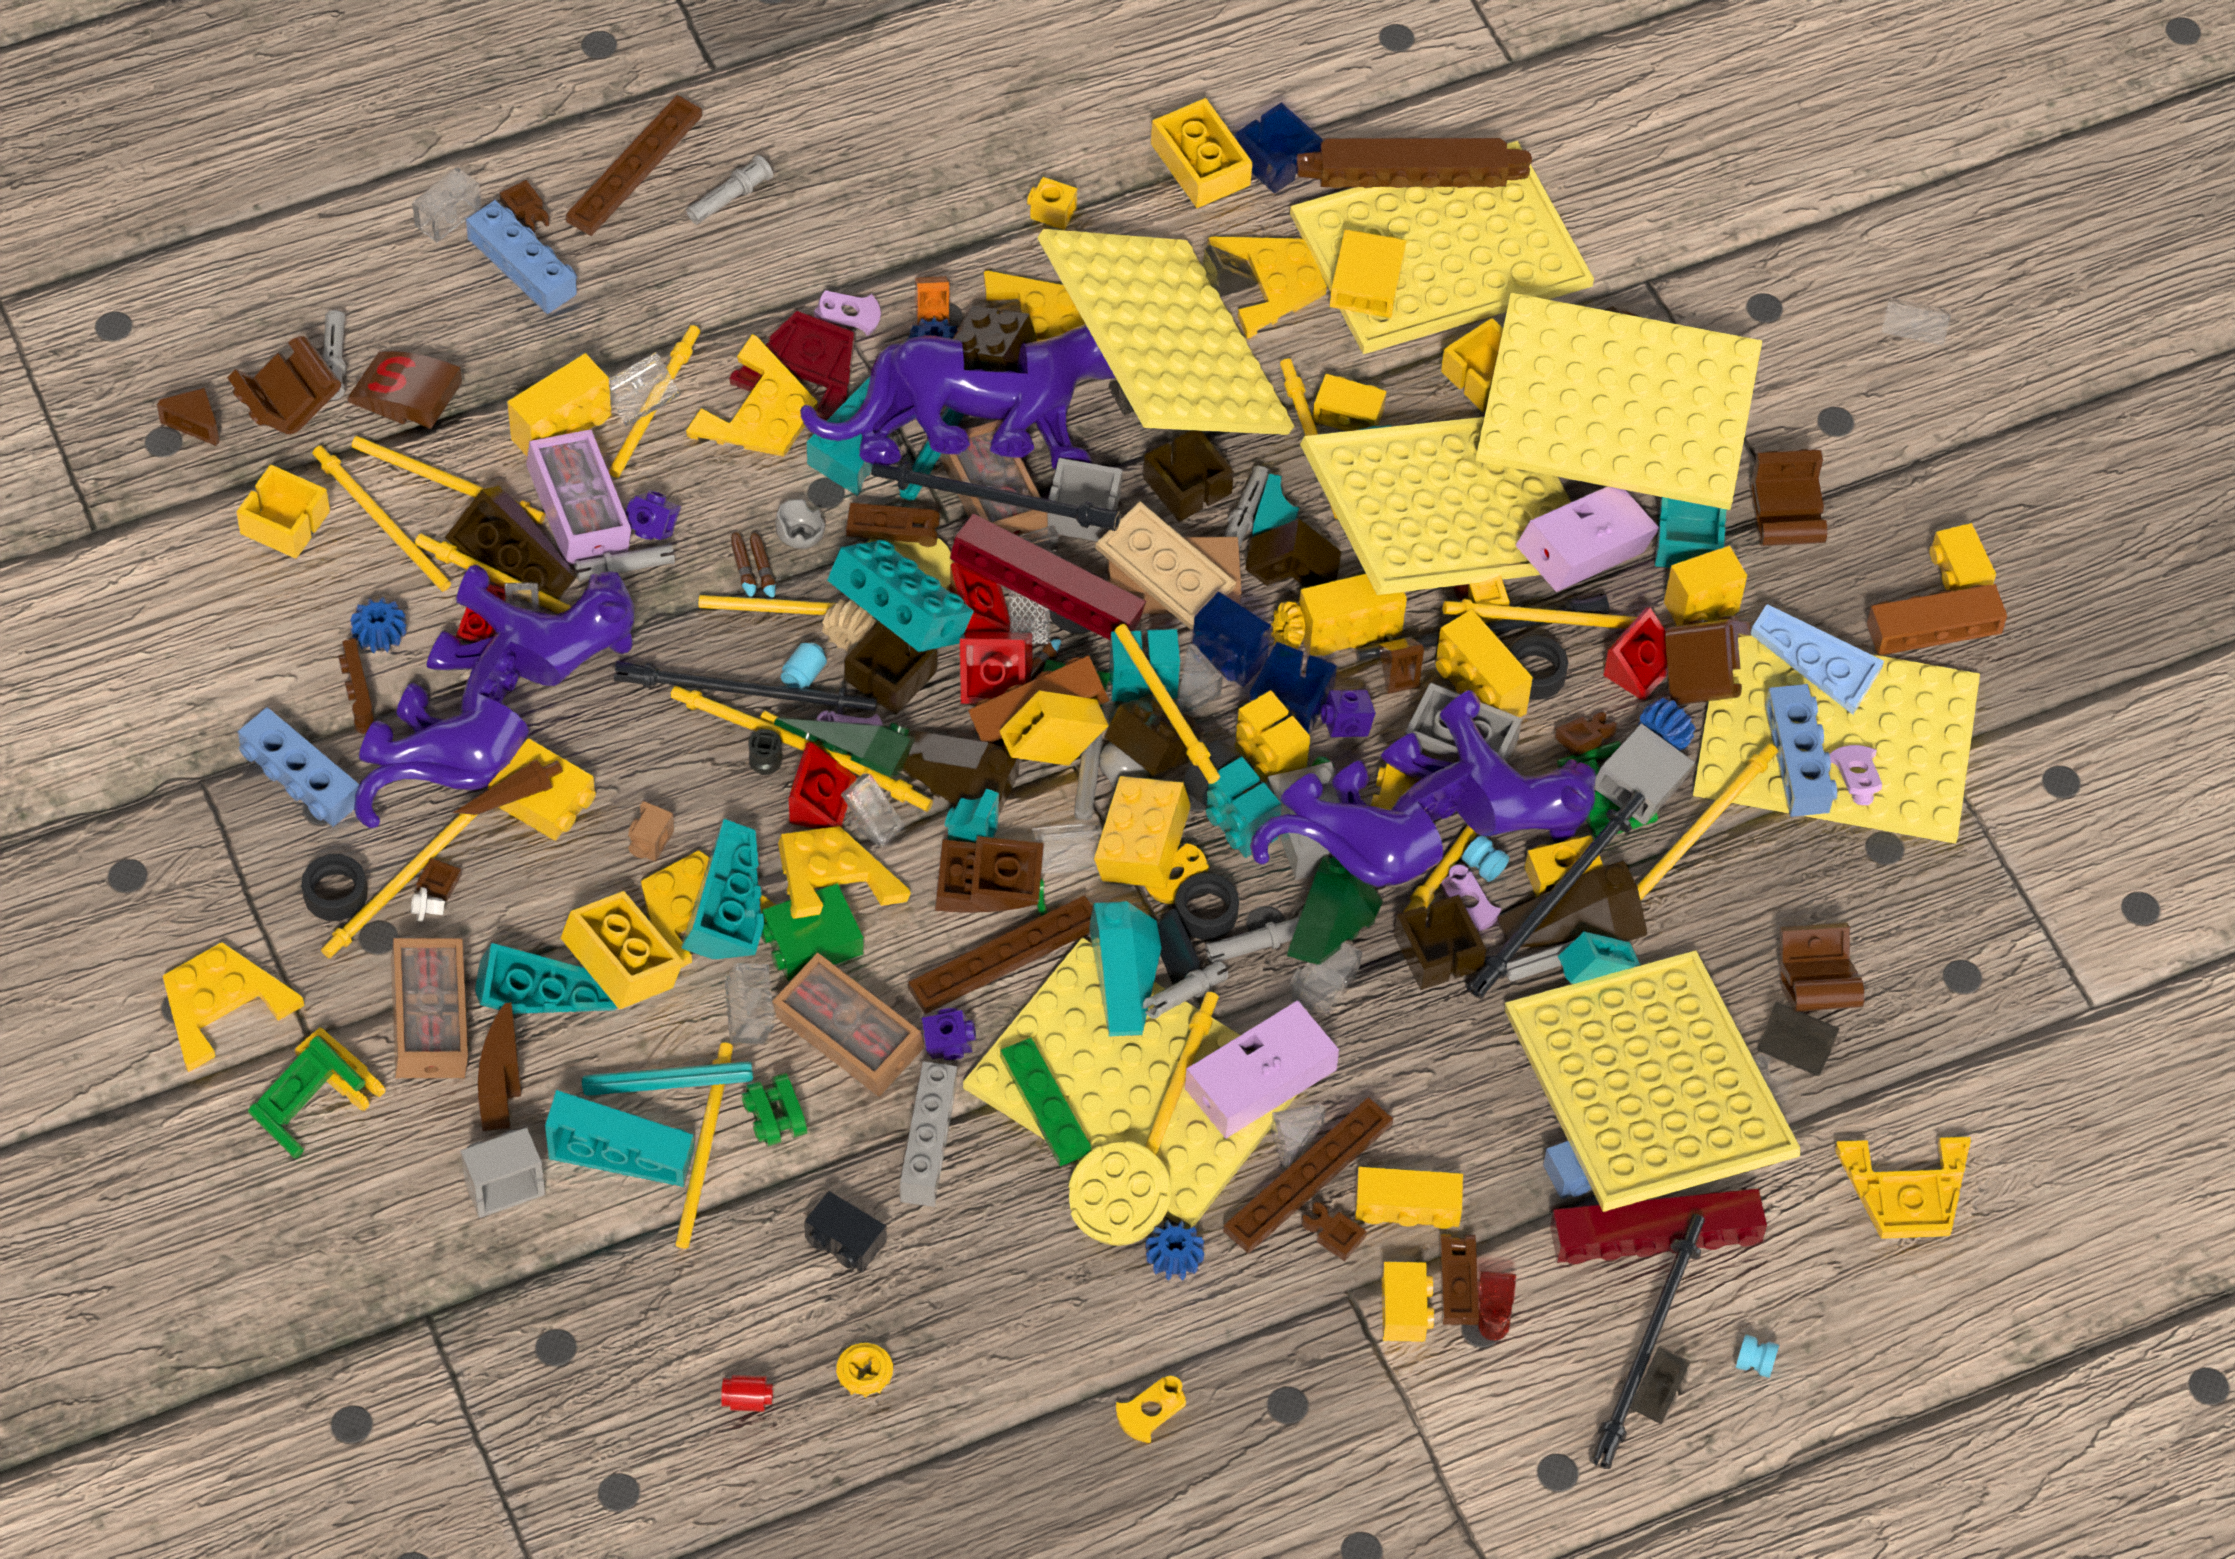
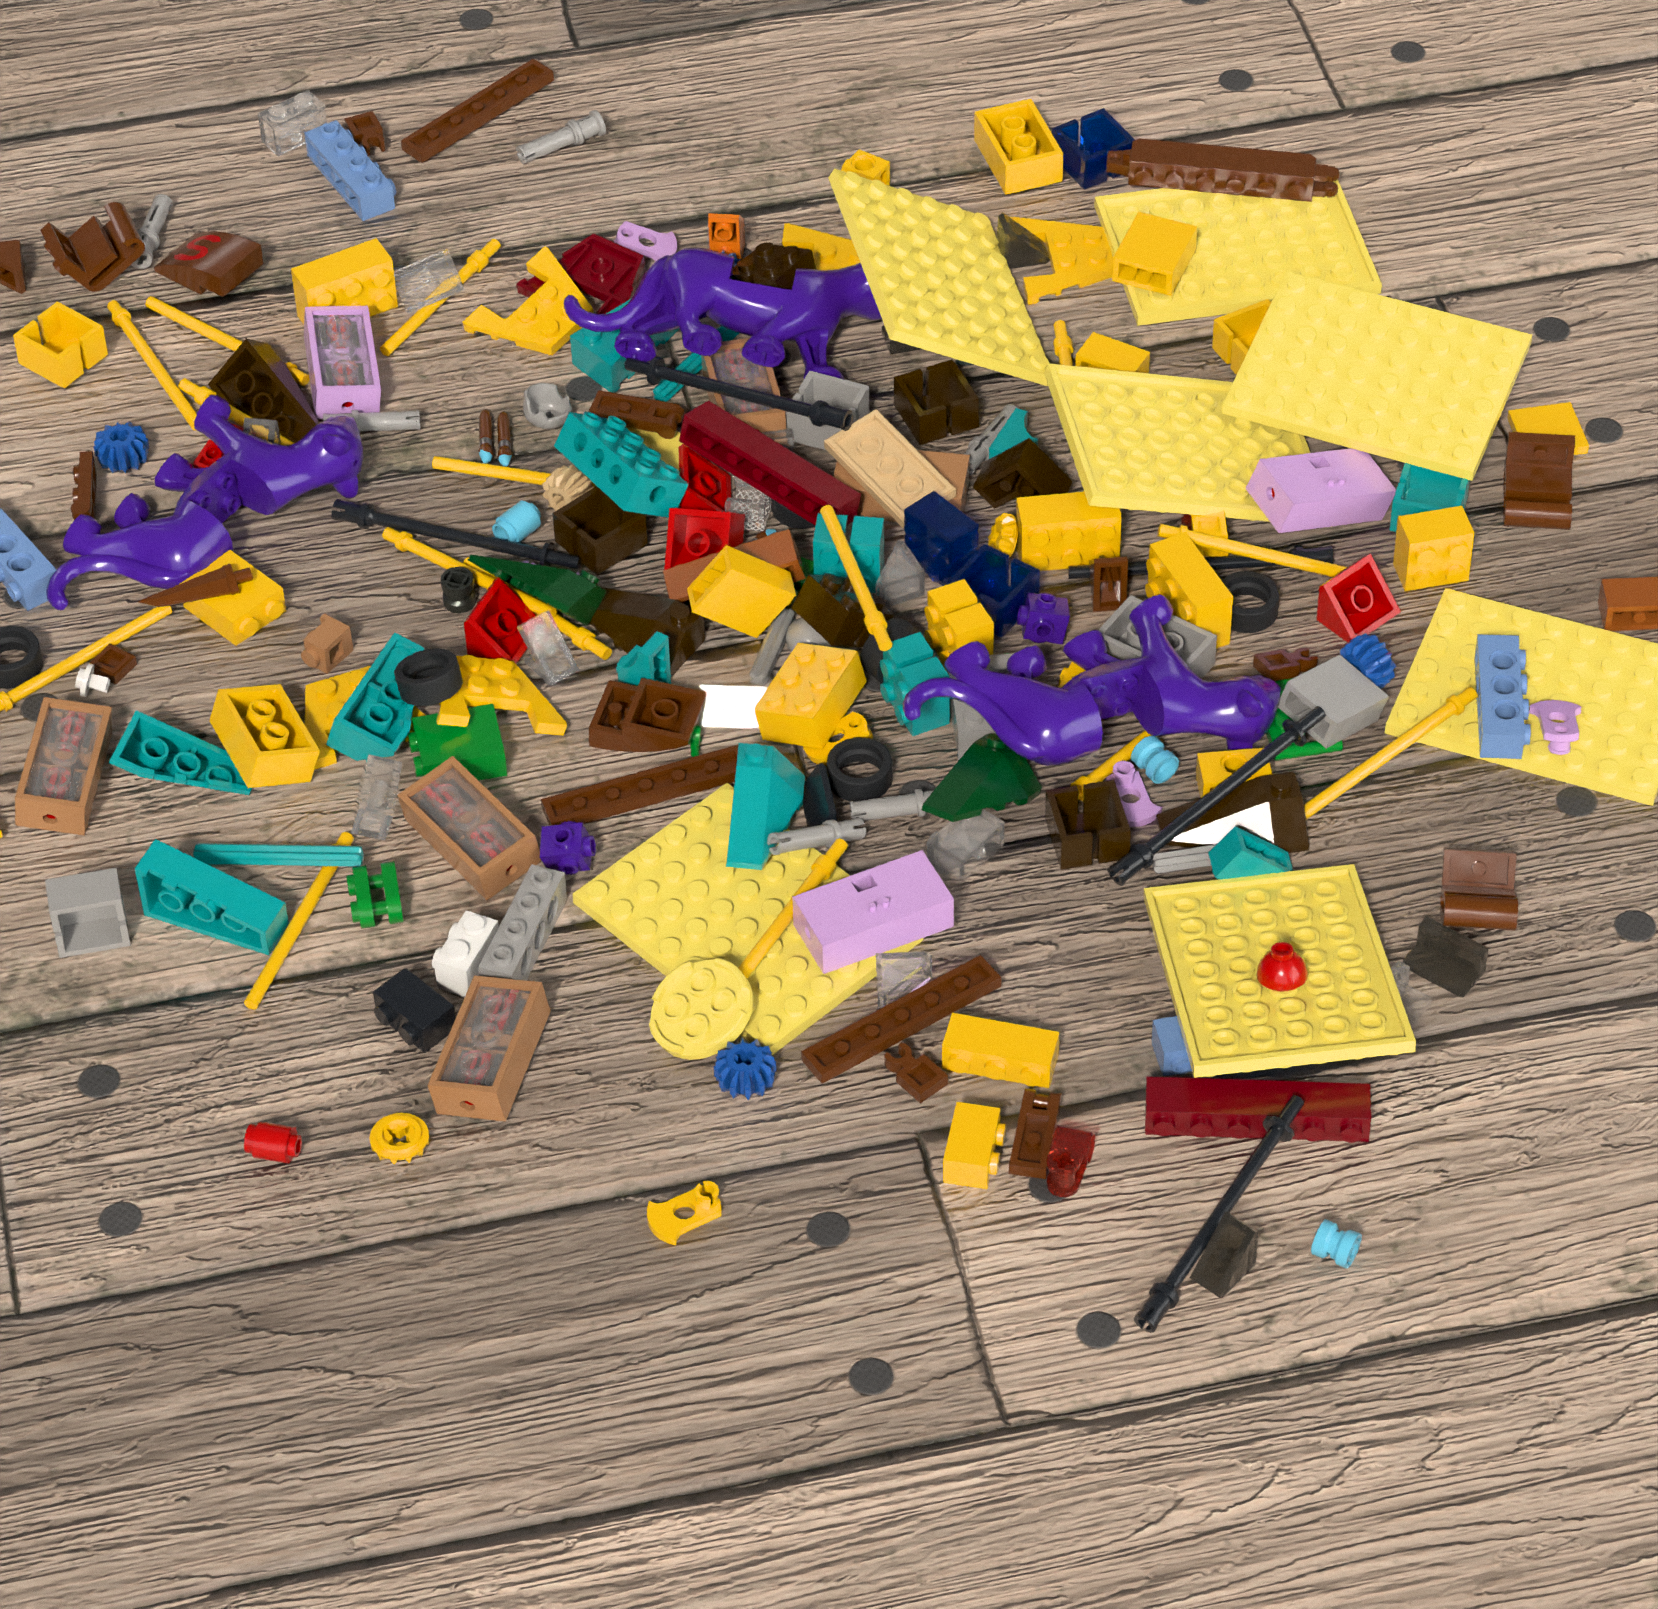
camera: 15 degrees right, 10 degrees down
(498, 1071) = (113, 820): reddish brown slope -> none
(652, 515) = (407, 384): dark purple brick -> none
(777, 887) = (428, 677): none -> black tyre
(880, 1165) = (462, 952): none -> white brick
(929, 1264) = (489, 1048): none -> brick
(1045, 1101) = (647, 917): green plate -> none
(1660, 1085) = (1282, 968): none -> red brick
(1703, 659) = (1415, 605): reddish brown piece -> none
(1784, 427) = (1550, 419): none -> yellow tile
(1821, 658) = (1541, 621): light blue wing -> none
(1908, 1201) = (1533, 1120): yellow wing -> none

